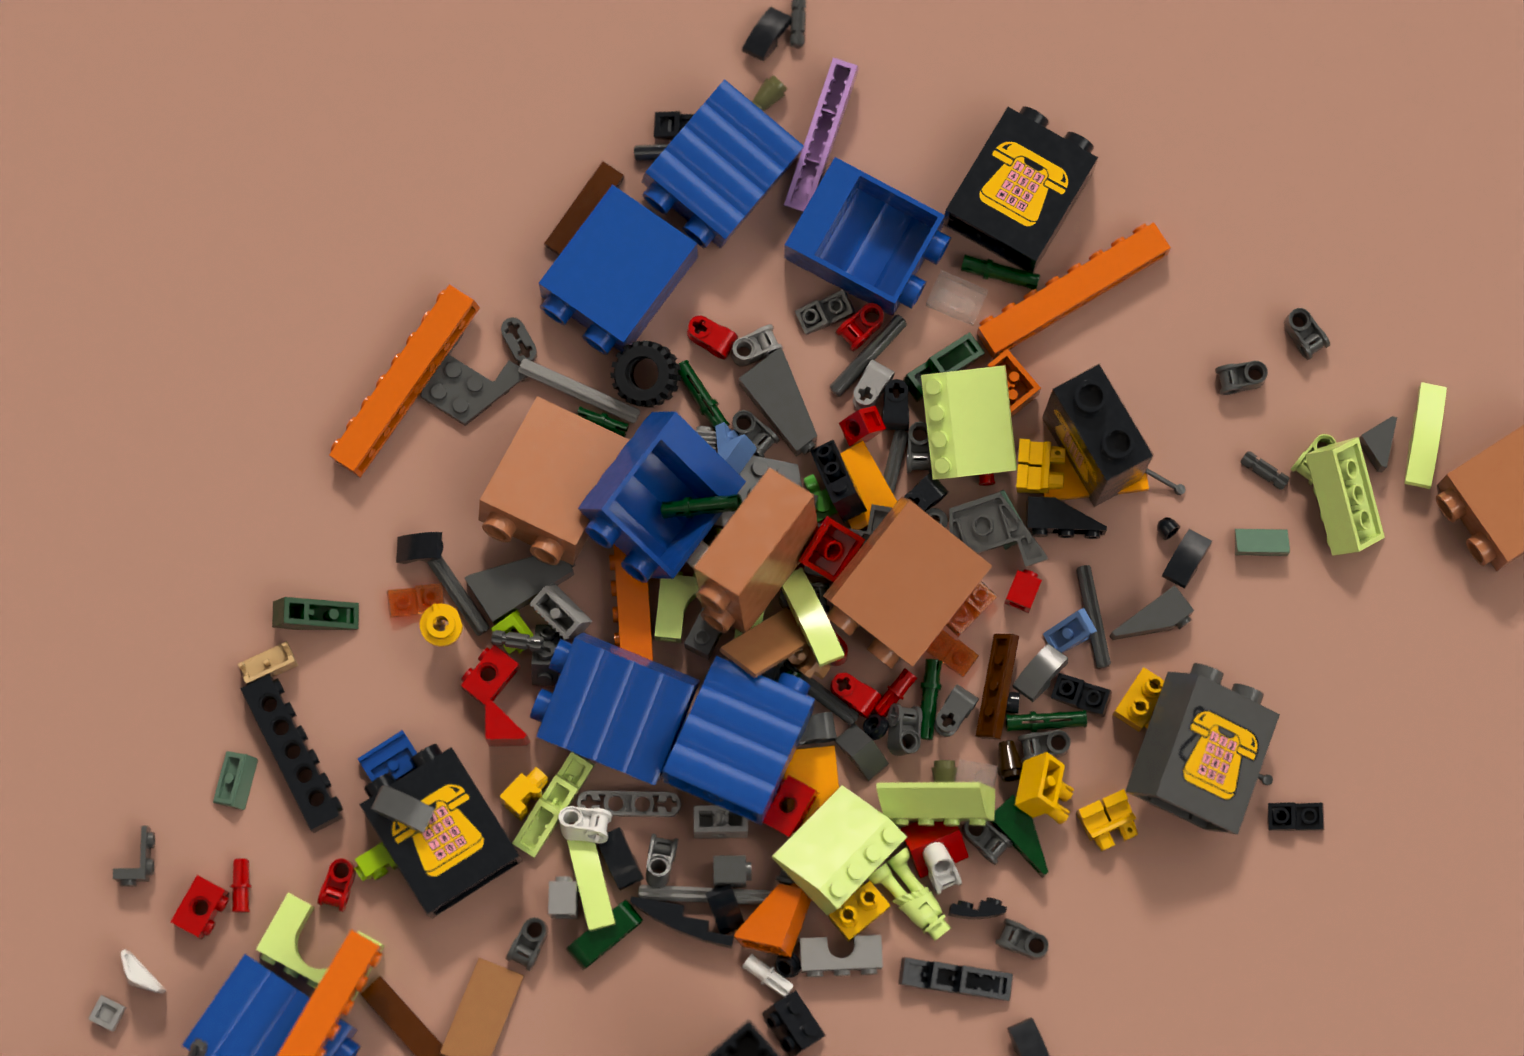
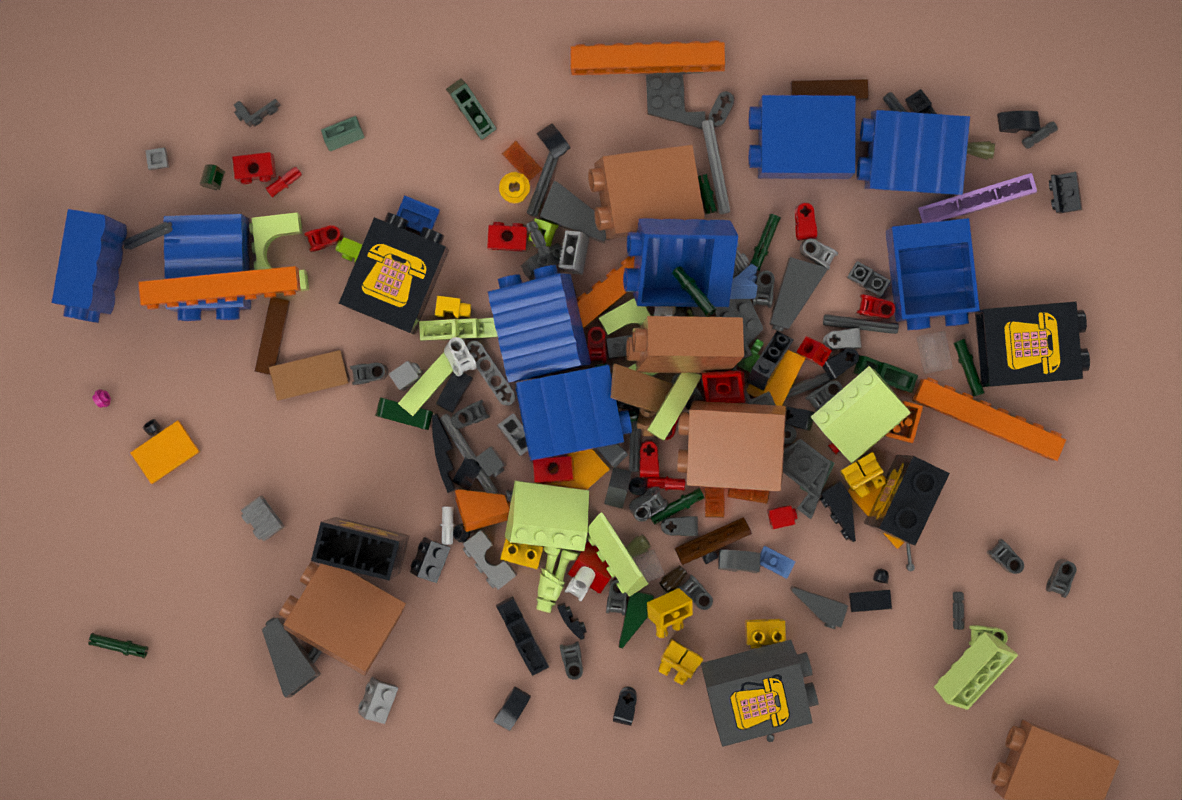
camera: 55 degrees right, 10 degrees up
(138, 975) = (190, 161): white slope -> none
(176, 961) = (212, 177): none -> dark green slope
(272, 662) = (422, 102): tan hinge -> none
(316, 816) = (397, 109): black brick -> none
(402, 808) = (387, 244): dark grey slope -> none
(501, 729) = (480, 266): red slope -> none
(624, 373) = (739, 193): black tyre -> none
(685, 661) = (597, 347): none -> red piece
(881, 38) = (1065, 192): none -> black bracket
(1014, 722) = (727, 601): dark green pin -> none
(1081, 695) = (743, 593): black slope -> none
(1092, 608) = (799, 565): dark grey axle -> none
(1122, 921) = (625, 709): none -> black piece
(1262, 542) = (912, 638): sand green slope -> none
(1296, 816) = (759, 770): black slope -> none
(1378, 442) = (1023, 668): dark grey slope -> none
(1425, 435) = (1048, 693): yellowish green slope -> none

